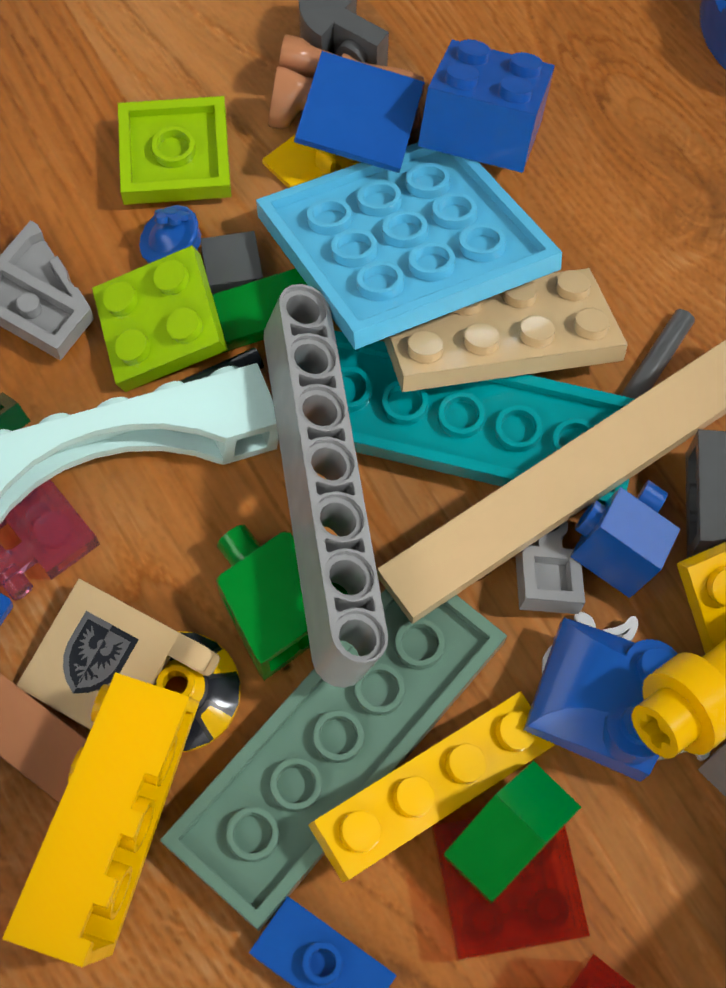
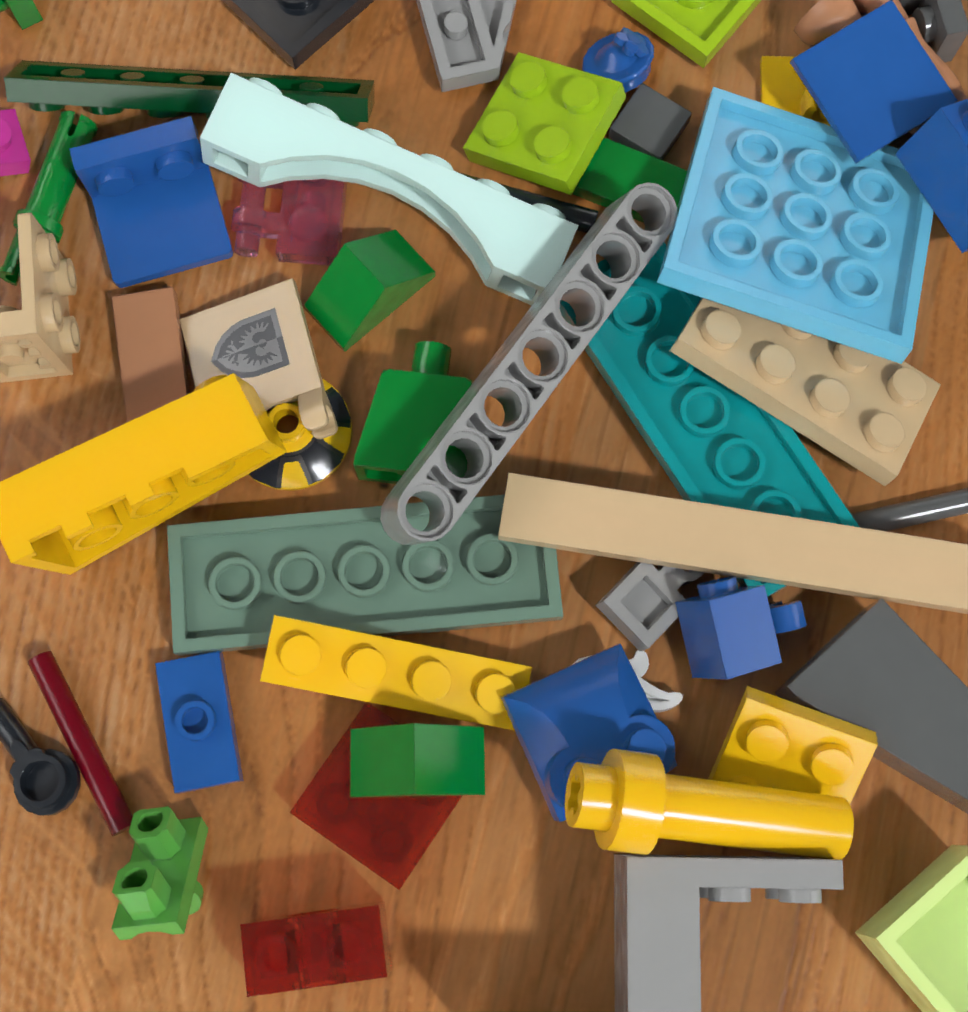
camera: 45 degrees right, 10 degrees up
(138, 540) = (366, 286): none -> green slope

